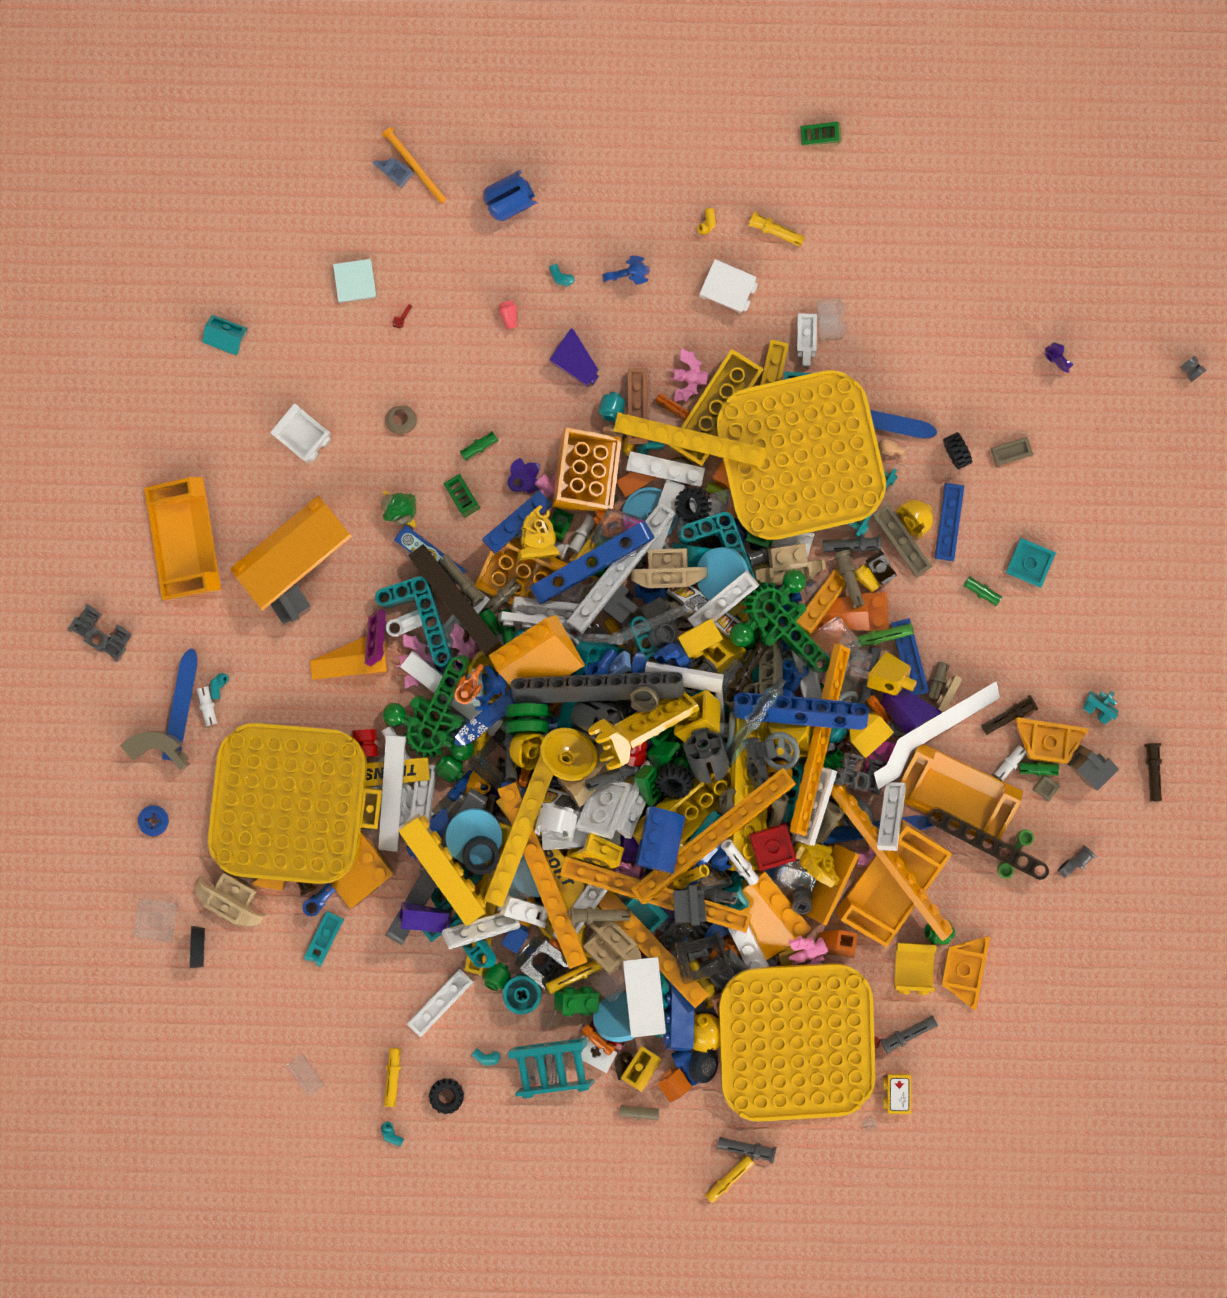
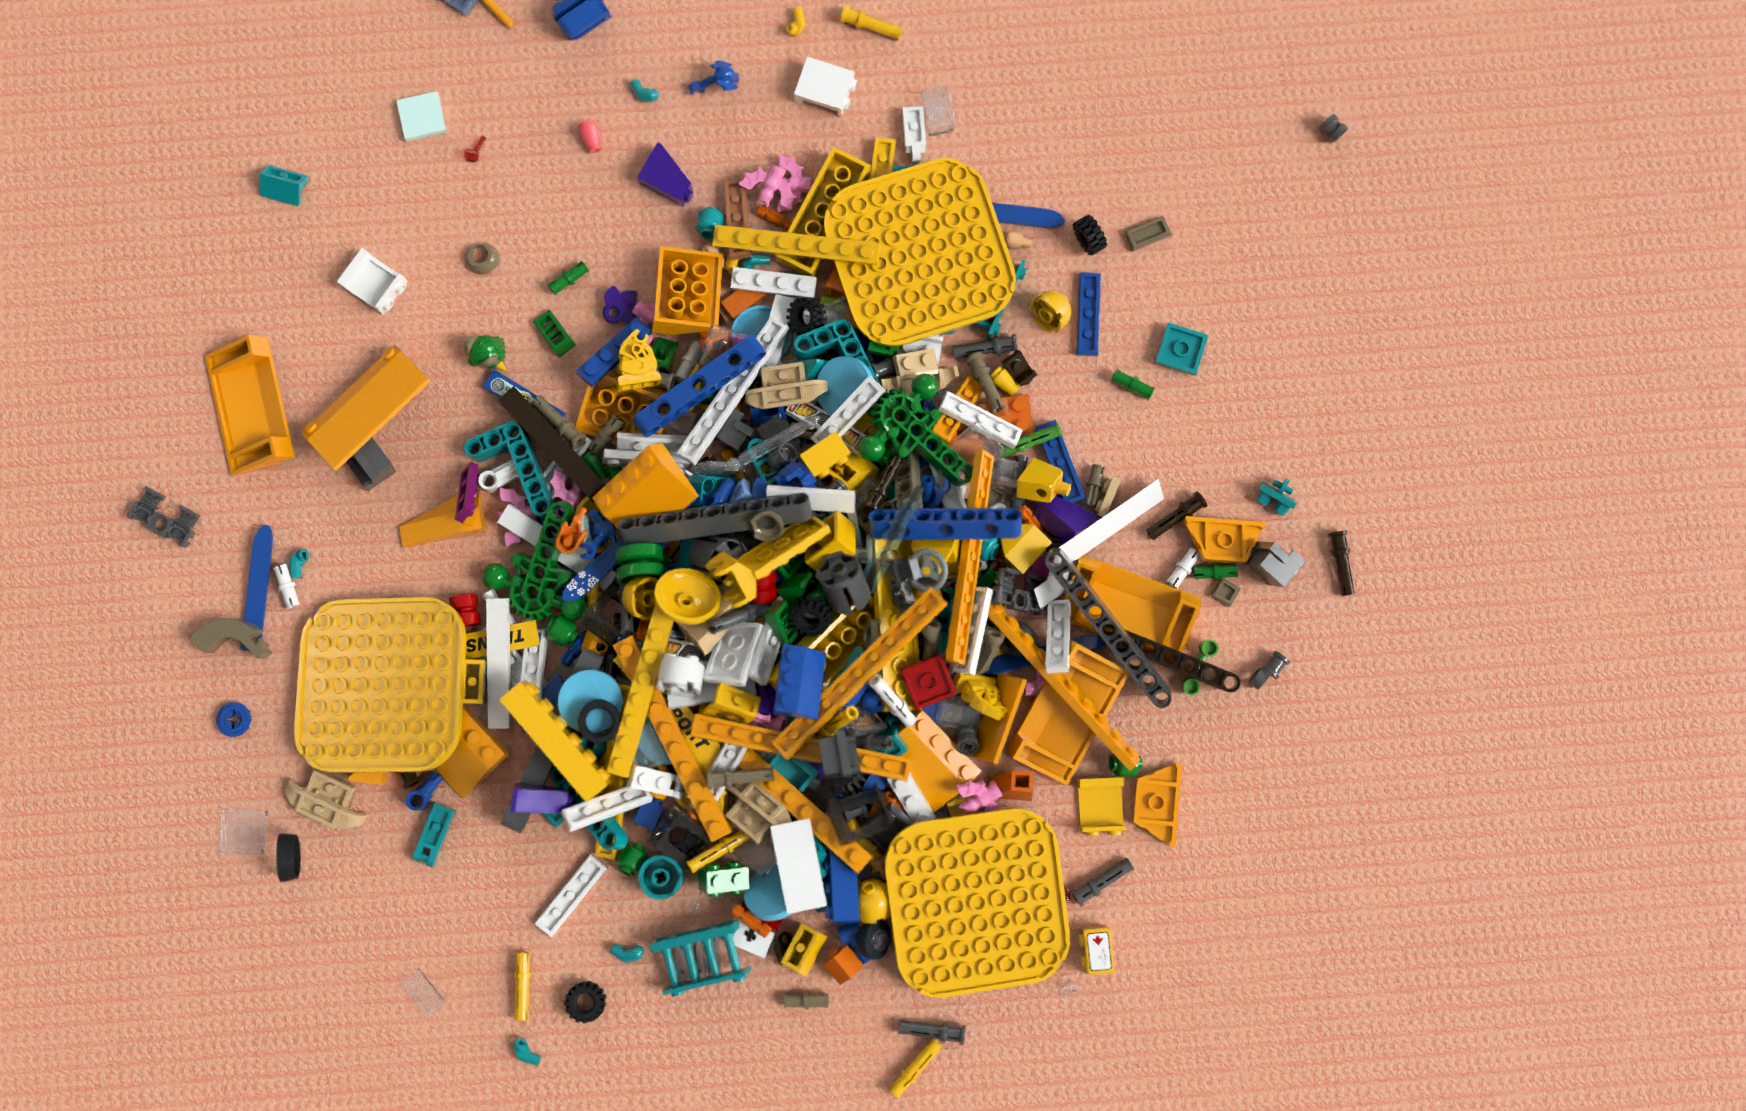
camera: 10 degrees left, 5 degrees down
(671, 375) = (772, 182): none -> bright pink animal
(832, 608) = (968, 413): none -> white tile
(902, 540) = (1039, 338): dark tan plate -> none
(937, 822) = (1111, 638): none -> dark grey beam
(1055, 354) = (1184, 126): dark purple plate -> none

